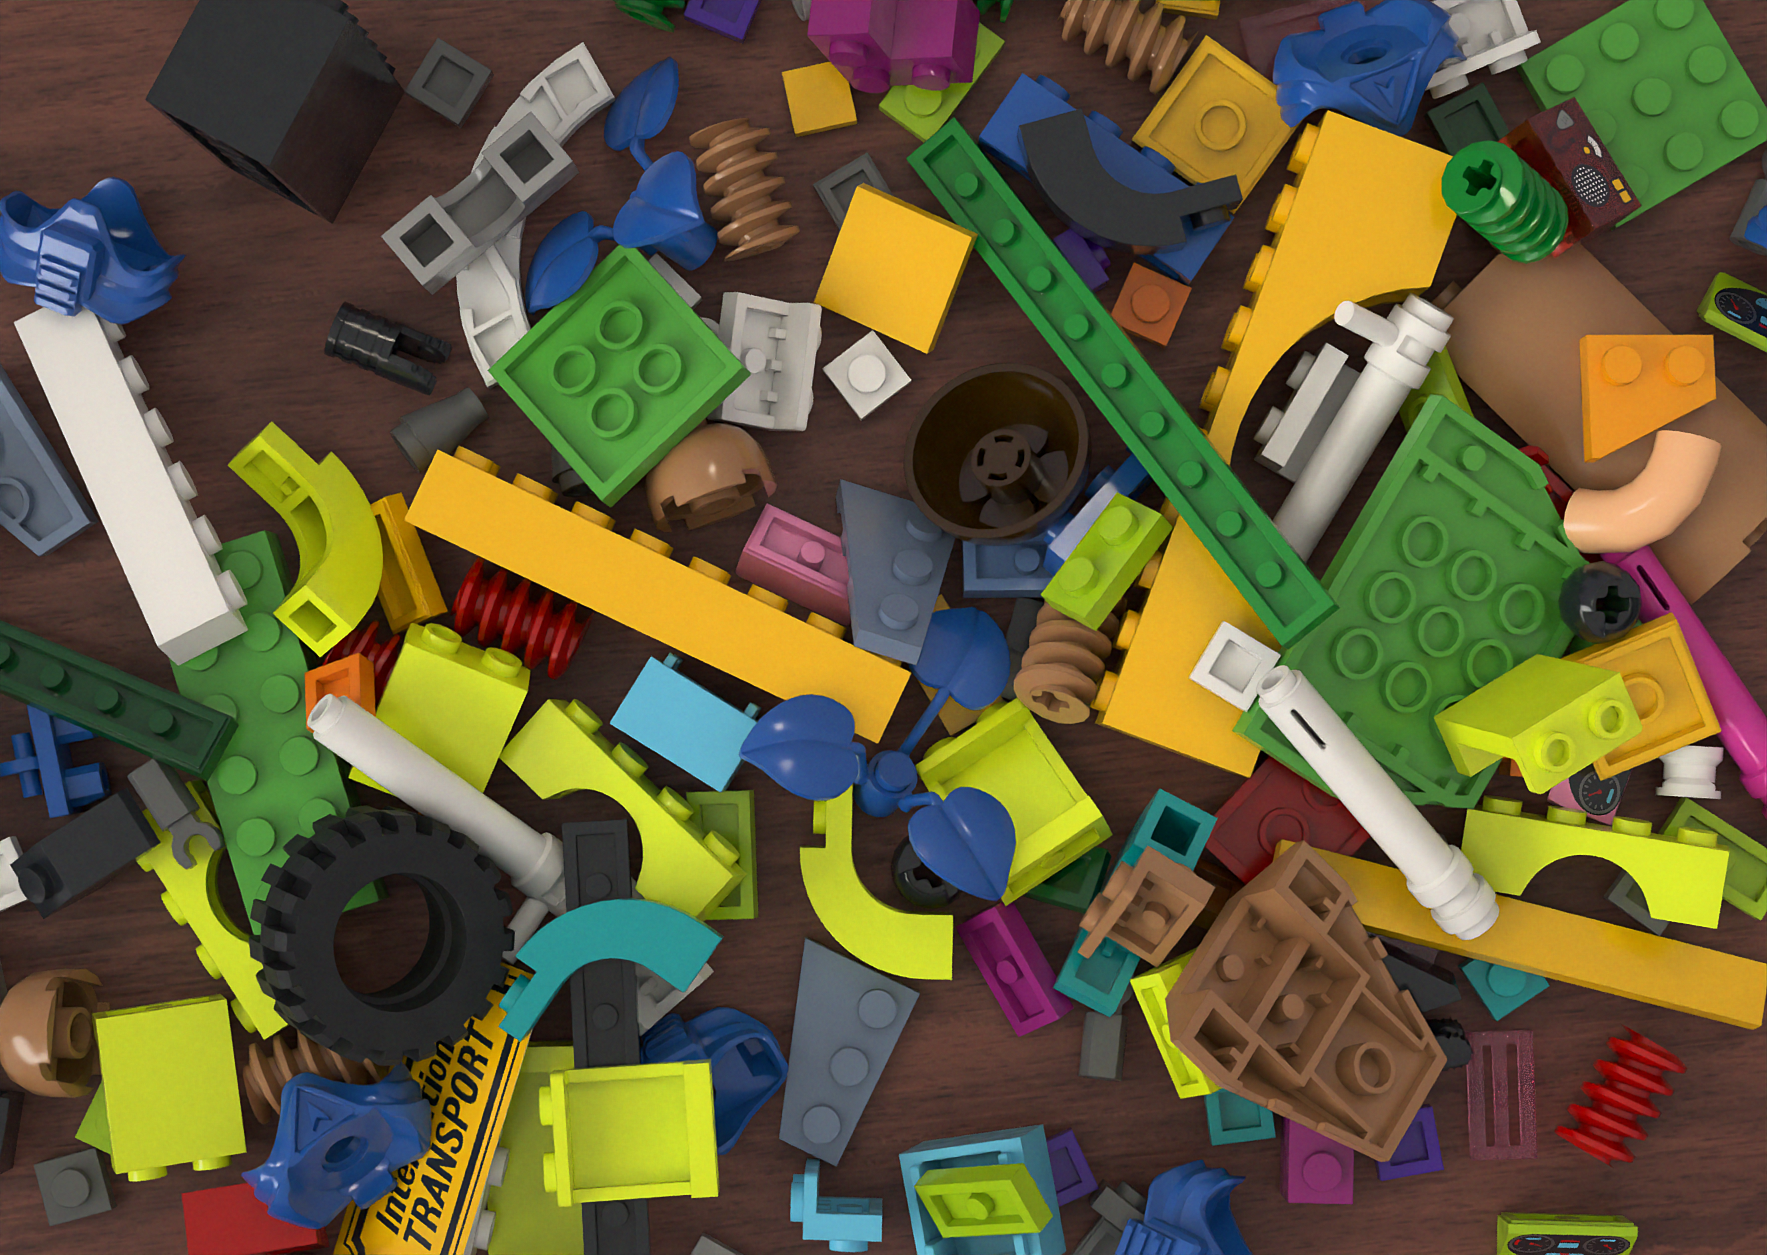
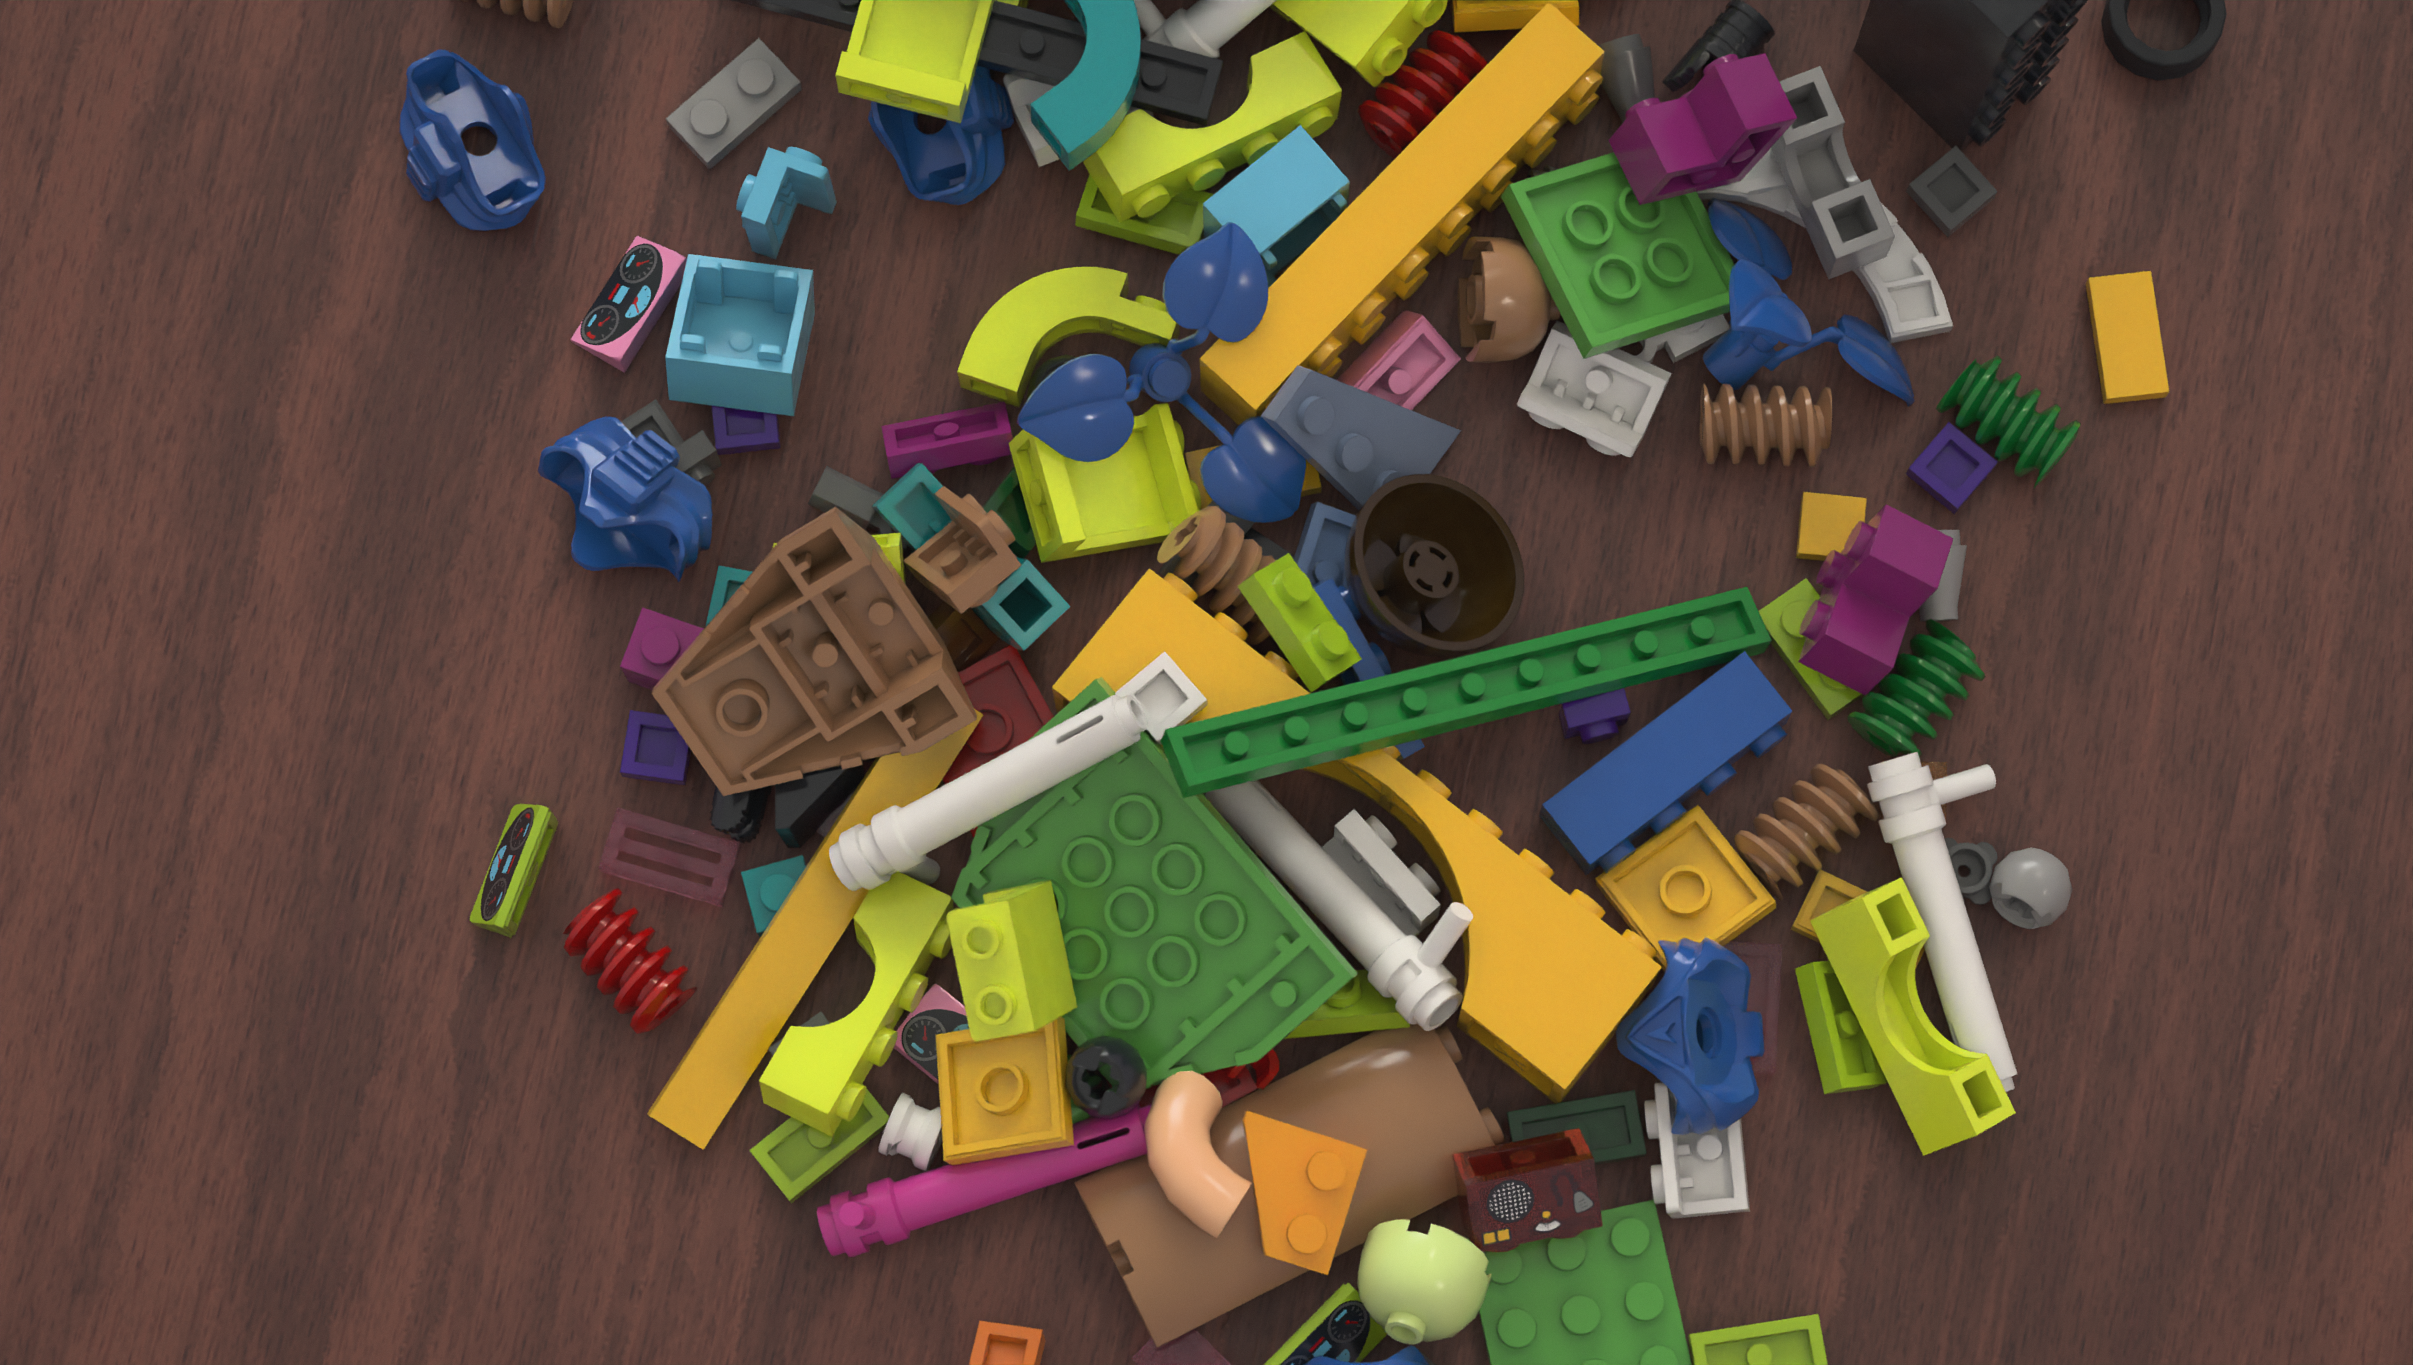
camera: 110 degrees right, 10 degrees down
(482, 328) = (1707, 133): none -> magenta brick
(838, 1047) = (927, 260): sand blue wing -> none
(839, 187) = (1725, 532): dark grey tile -> none
(867, 375) = (1551, 487): white plate -> none
(895, 268) = (1644, 538): yellow tile -> none
(983, 1200) = (745, 320): lime plate -> none
(1105, 211) = (1663, 716): black arch -> none
(1150, 305) = (1532, 771): orange plate -> none
(1505, 201) = (1519, 1101): green piece -> none
(1688, 248) = (1421, 1282): none -> yellowish green cylinder

